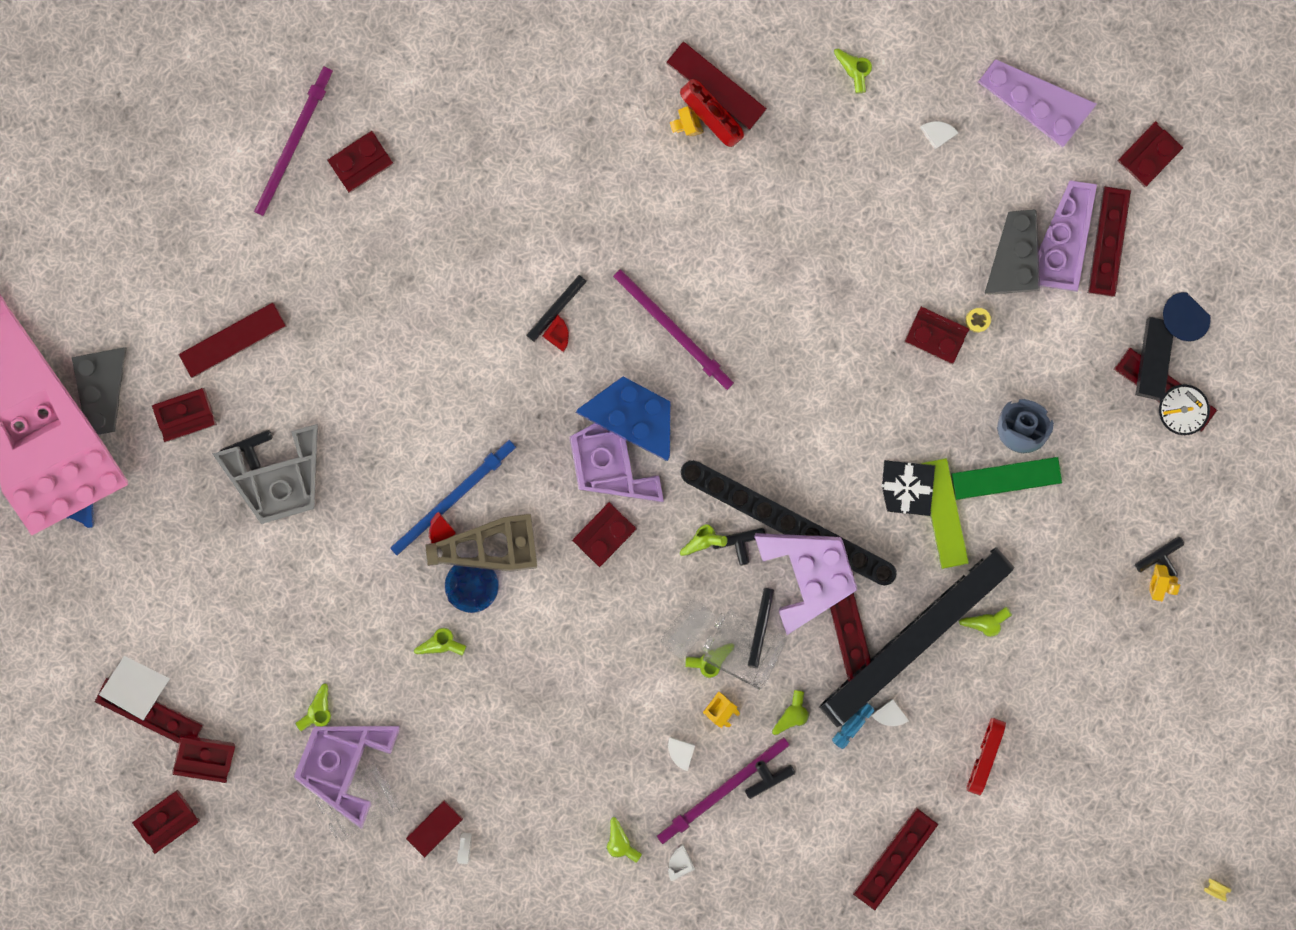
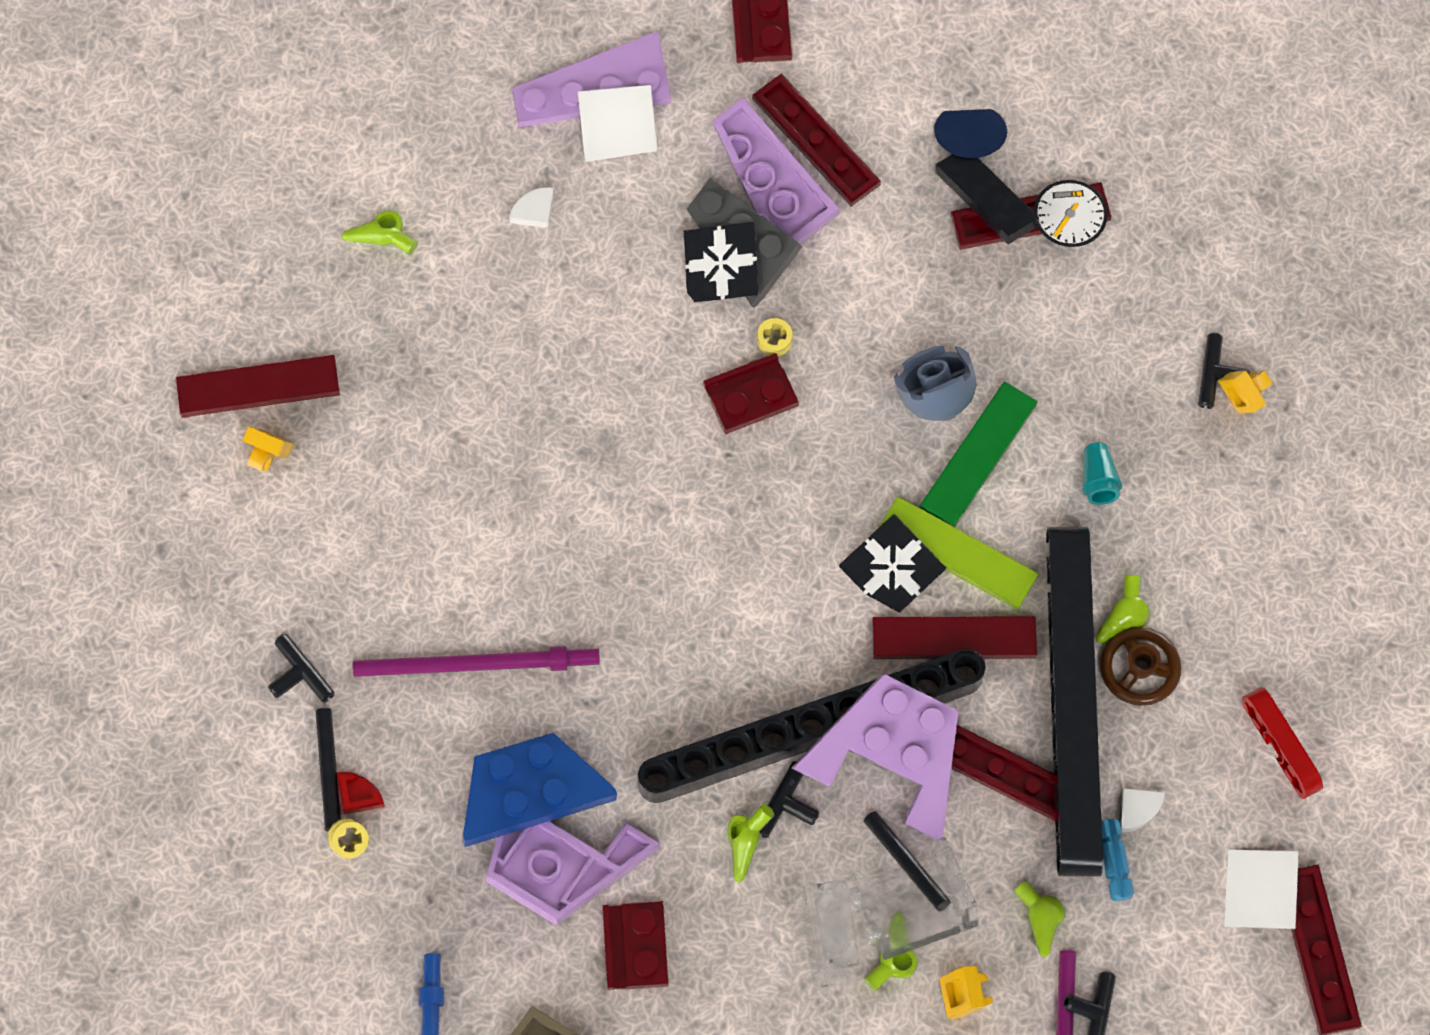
camera: 50 degrees left, 20 degrees down
(530, 343) = (338, 830): none -> light yellow bush
(592, 248) = (301, 670): none -> black piece
(711, 113) = (281, 412): red beam -> none
(897, 550) = (937, 636): none -> dark red tile
(901, 807) = (1261, 889): none -> white sticker
(976, 670) = (1144, 652): none -> reddish brown piece
(994, 257) = (721, 262): none -> black sticker
(1025, 131) = (617, 122): none -> white sticker
(1049, 549) = (1100, 475): none -> teal cone

